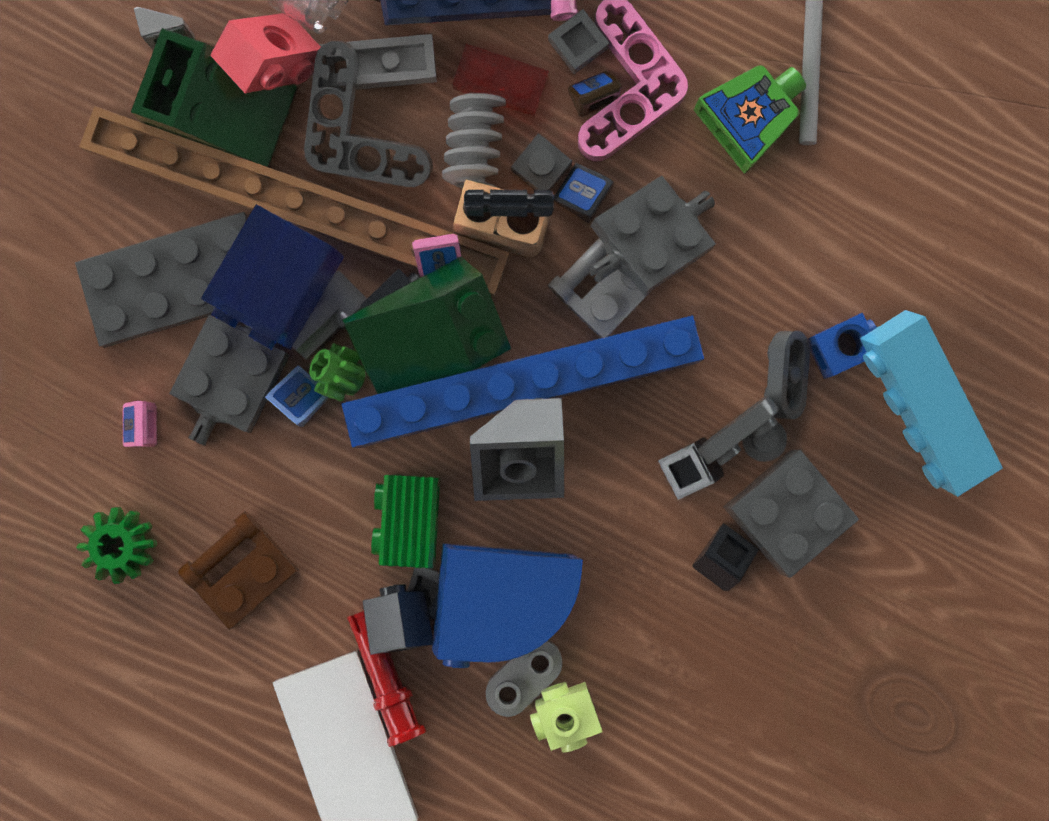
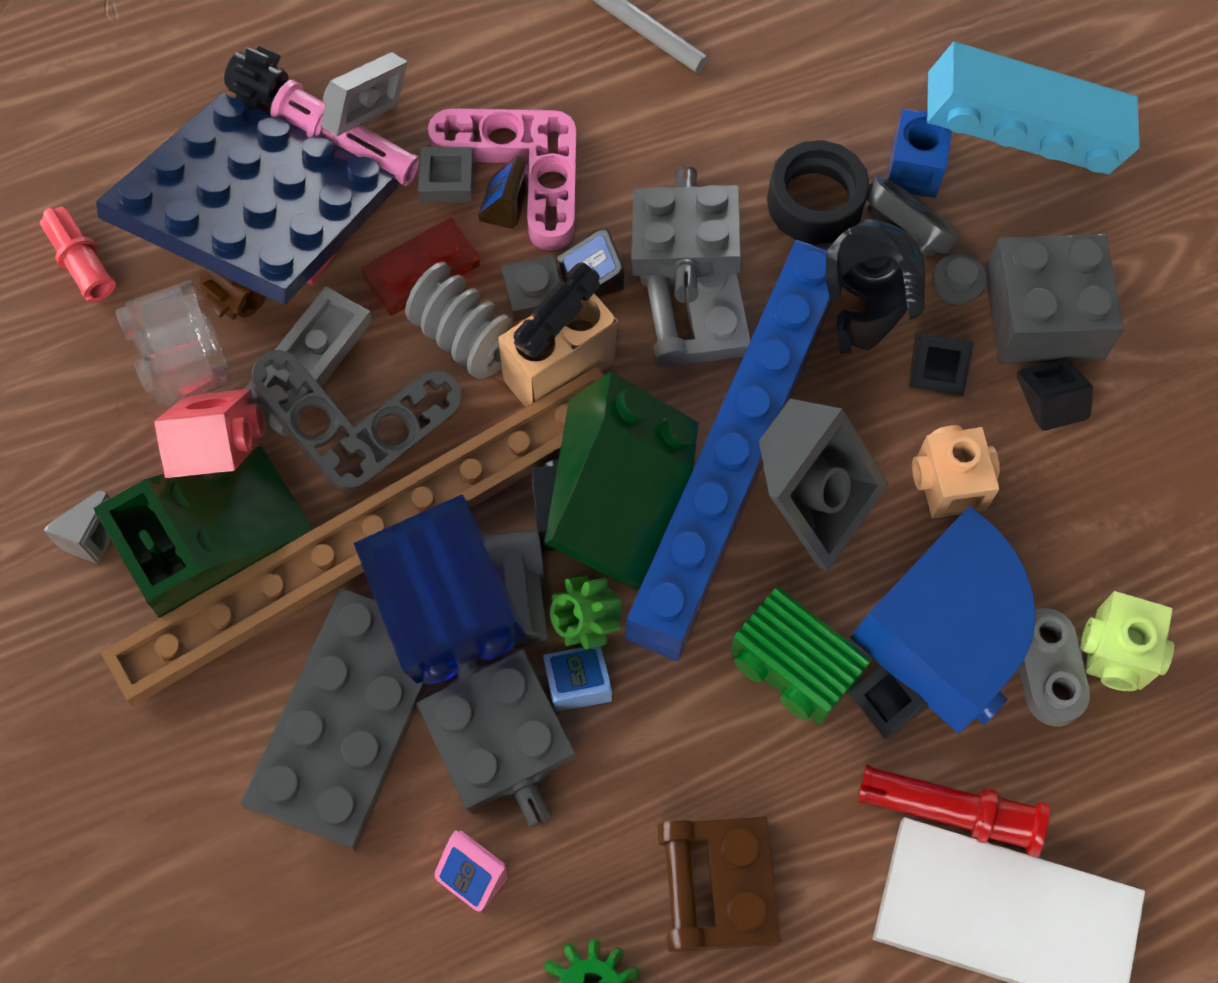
camera: 55 degrees left, 20 degrees down
(397, 620) = (902, 740): black brick -> none
(435, 252) = (545, 421): slope -> none
(605, 551) = (956, 471): none -> light nougat brick
(726, 392) = (883, 269): none -> black piece
(751, 112) = (639, 85): torso -> none
(755, 420) = (942, 304): dark grey plate -> none
(784, 277) = (824, 159): none -> black tyre

